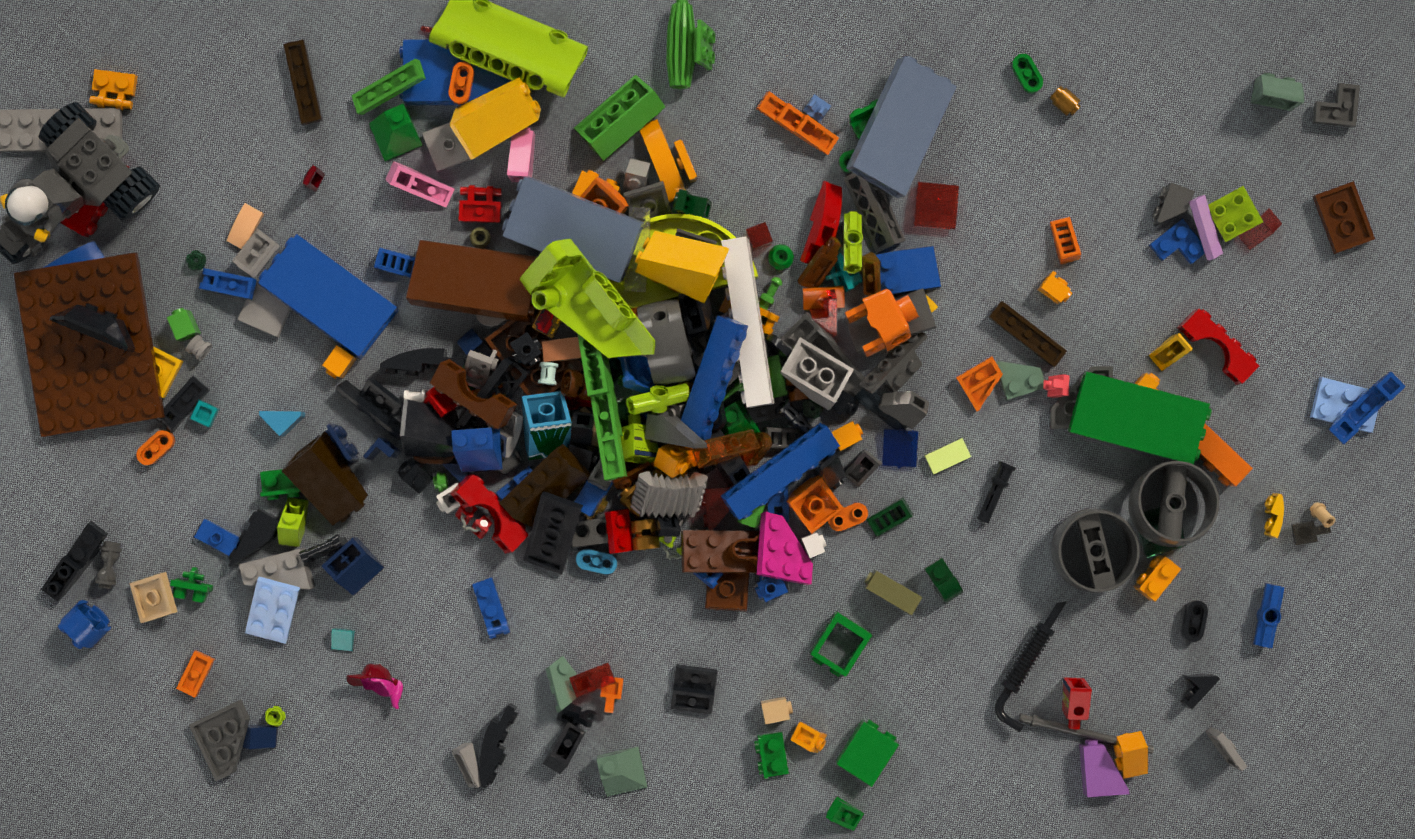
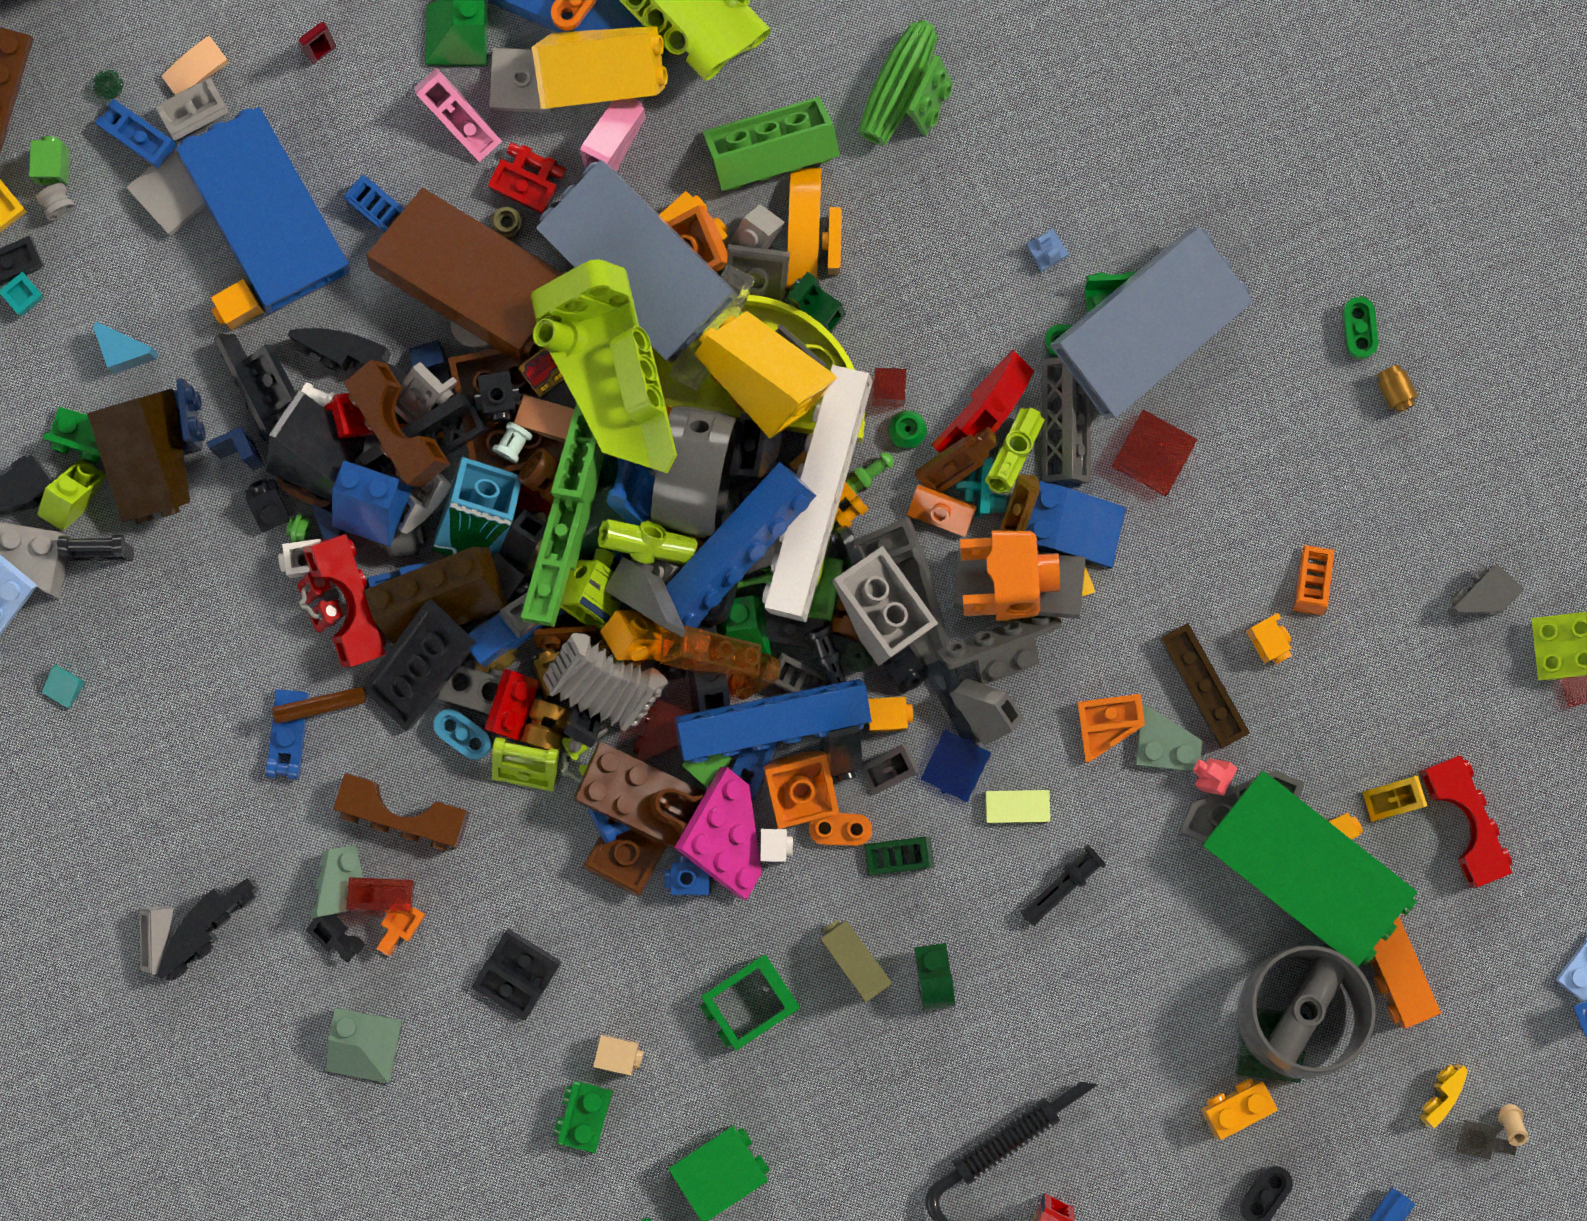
camera: 25 degrees right, 5 degrees down
(353, 566) = (124, 590): dark blue slope -> none
(378, 679) = (85, 763): hair -> none
(502, 583) = (318, 705): none -> reddish brown axle
(555, 627) = (363, 800): none -> reddish brown arch
(564, 748) = (297, 974): black slope -> none
(643, 563) = (524, 765): none -> lime plate
(797, 123) = (1012, 257): orange slope -> none
(809, 738) = (646, 1115): light orange bracket -> none
(828, 315) = (934, 537): clear red slope -> none
(1099, 565) = (1164, 1054): dark grey cylinder -> none
(1181, 238) = (1478, 647): blue plate -> none
(1206, 227) = (1519, 647): lavender tile -> none

